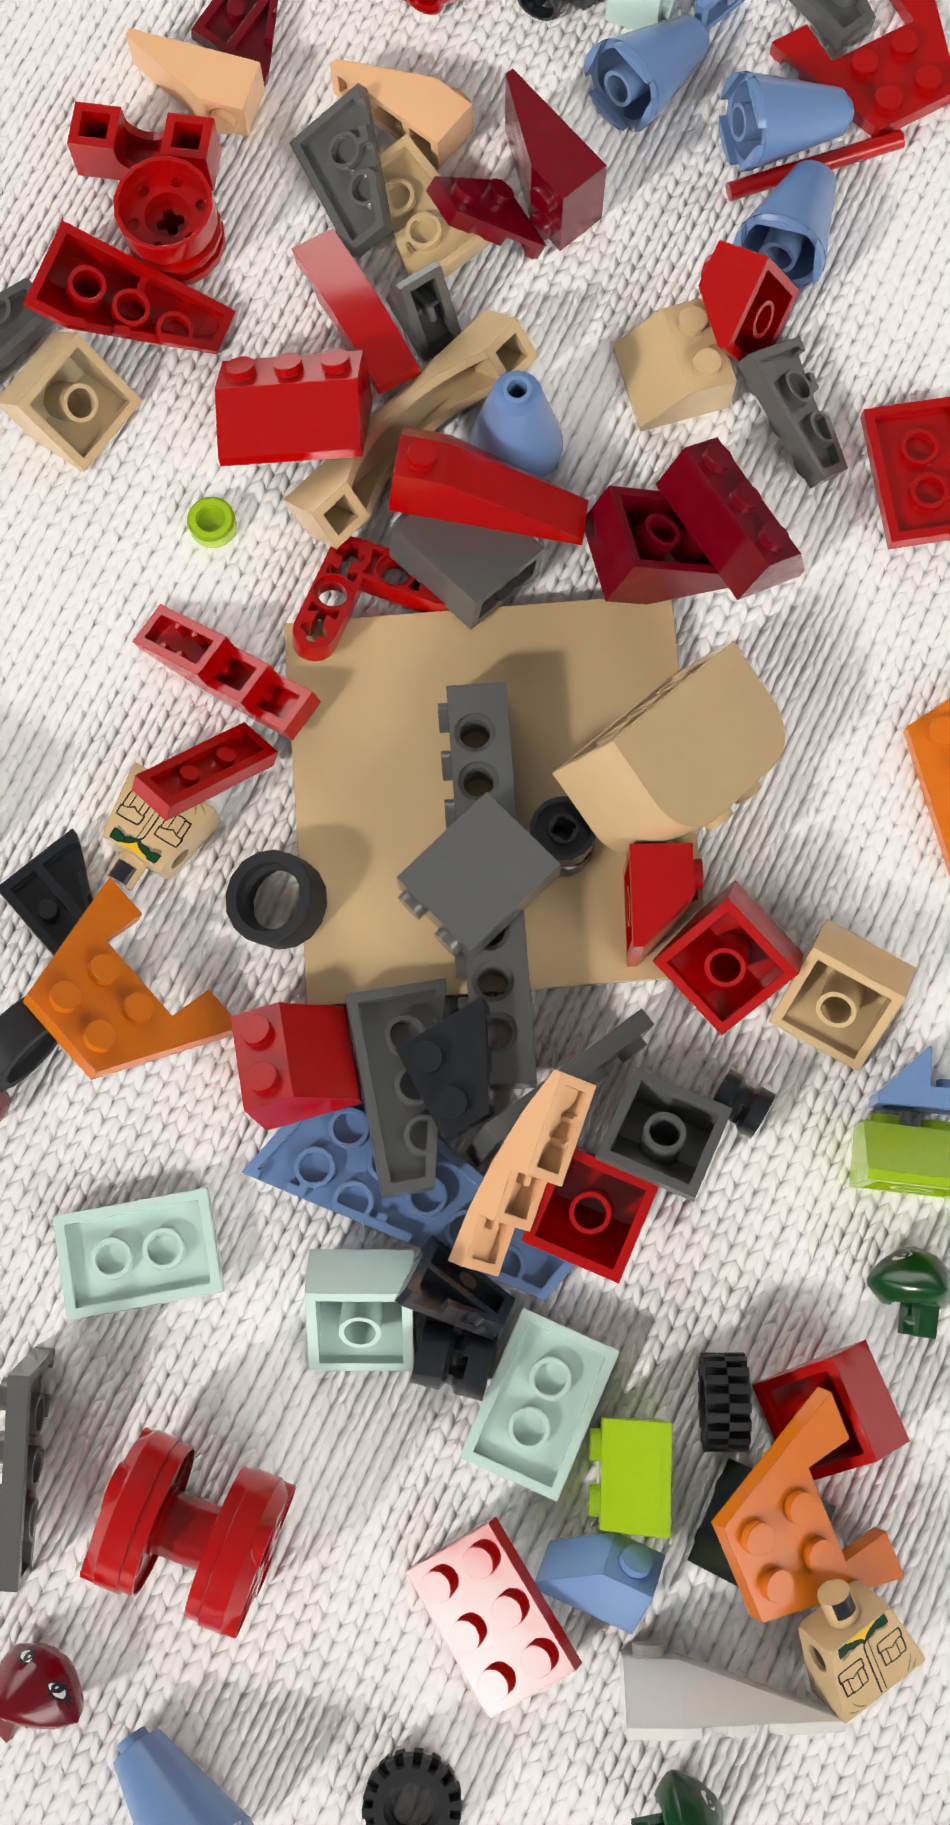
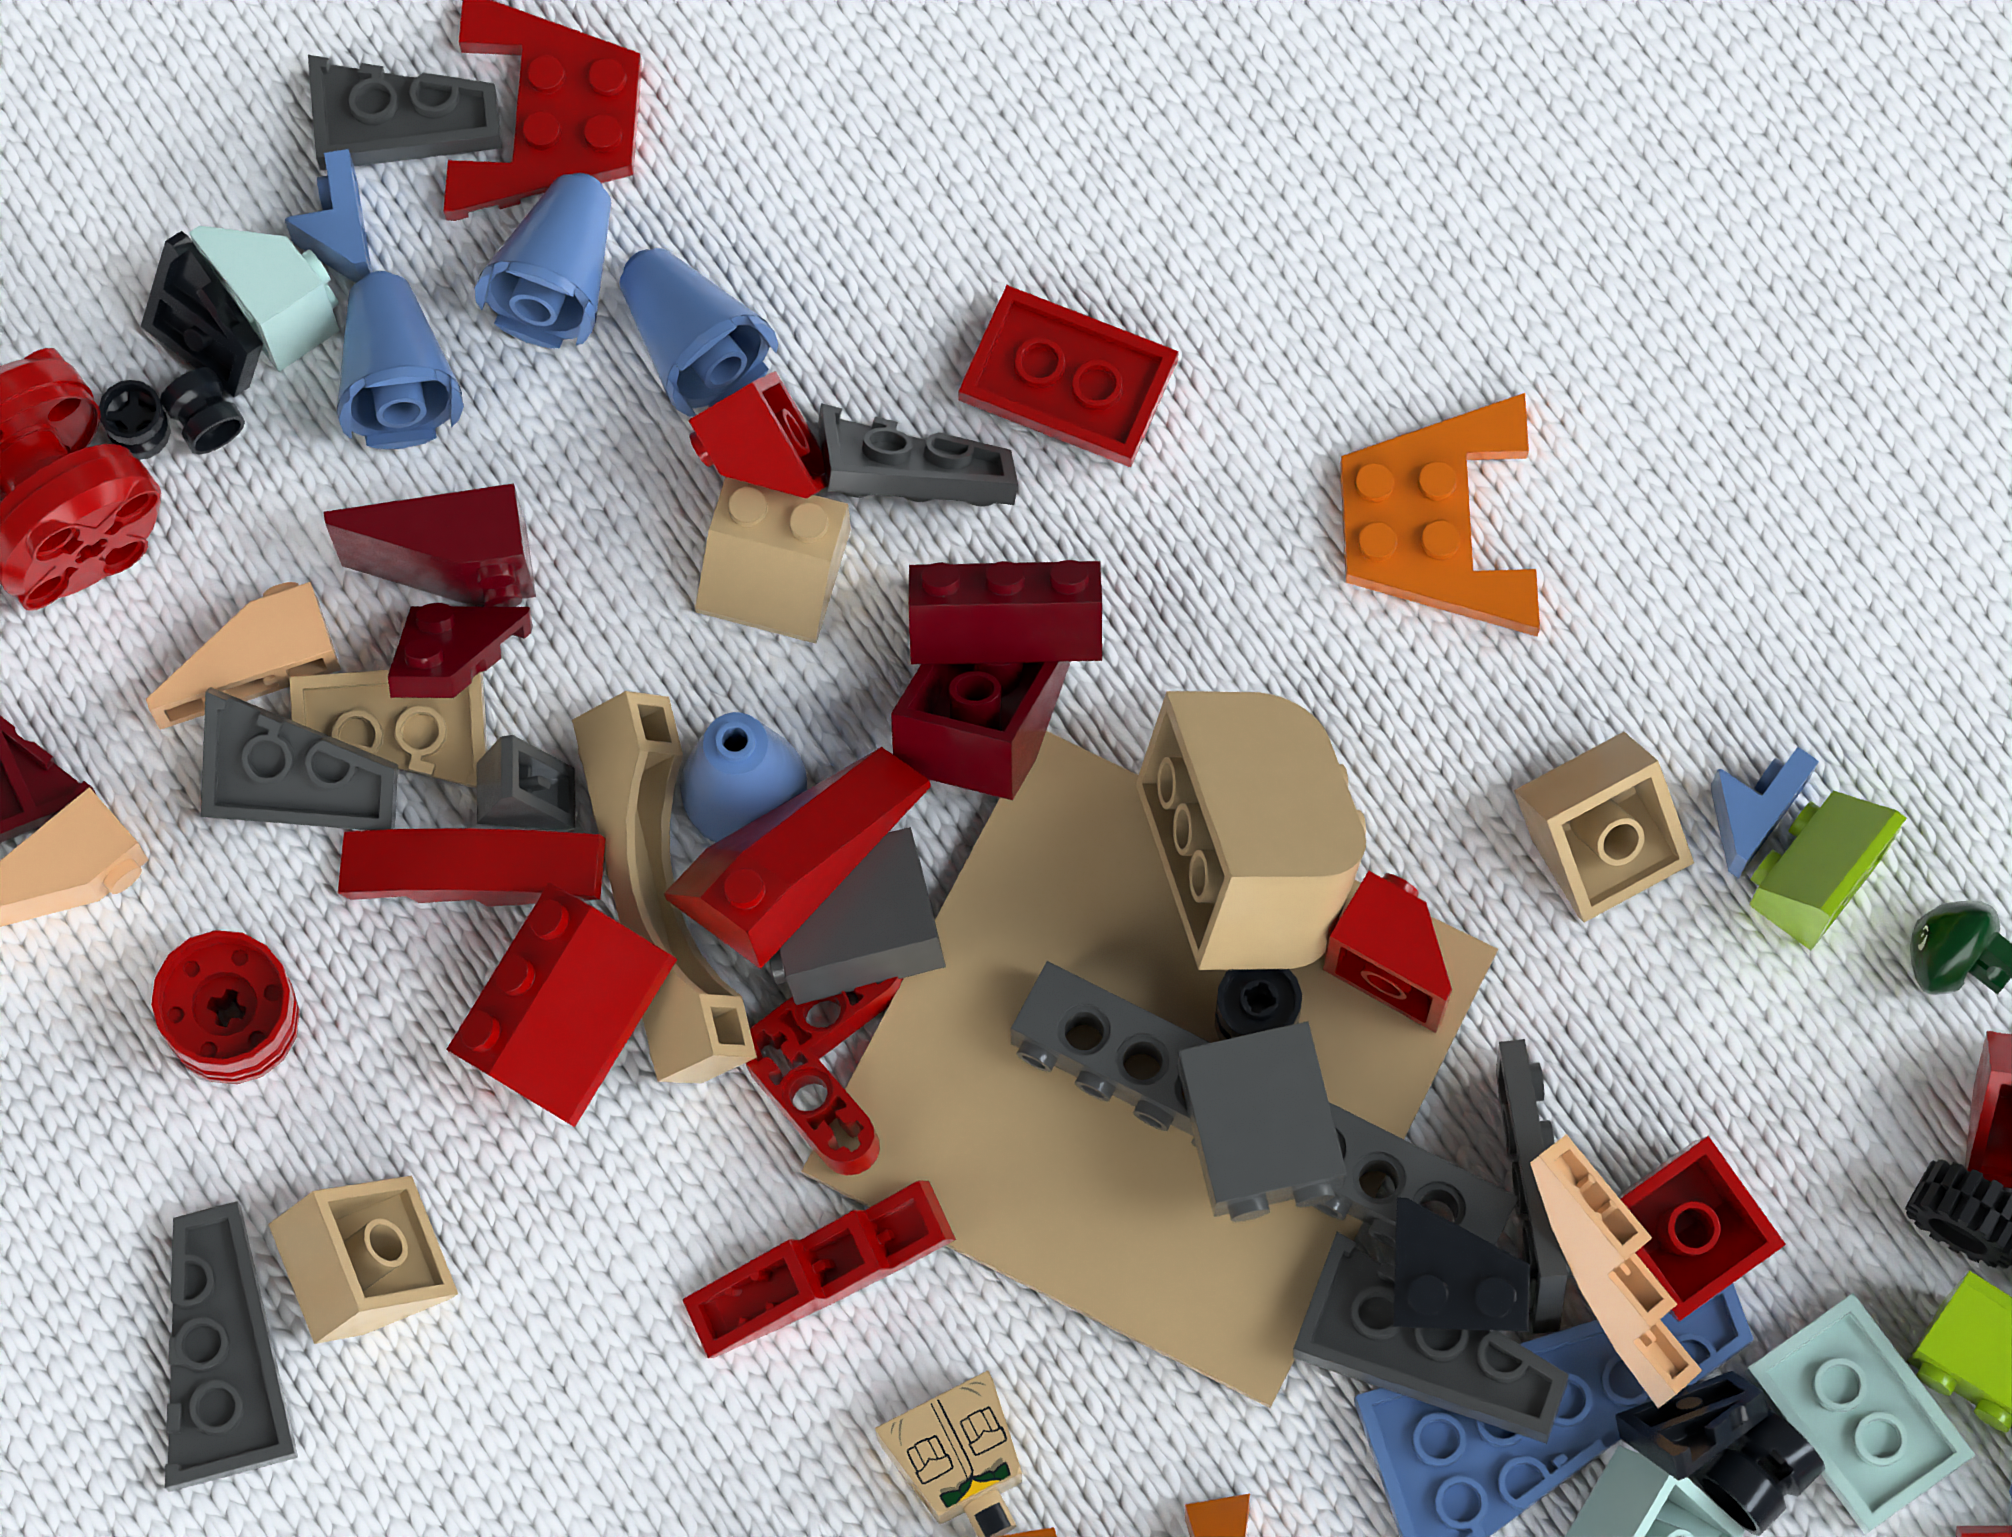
camera: 60 degrees left, 5 degrees down
(108, 145) = (75, 1018): red arch -> none
(116, 295) = (269, 1129): red wedge -> none
(204, 771) = (937, 1354): red plate -> none
(212, 522) = (619, 1182): lime tile -> none
(243, 889) = (1091, 1397): black tyre -> none
(295, 1062) = (1336, 1448): red slope -> none
(664, 1134) = (1652, 1100): dark grey slope -> none
(729, 958) = (1500, 915): red slope -> none
(755, 1101) = (1659, 1004): black wheel -> none
(833, 159) = (625, 246): red bar -> none

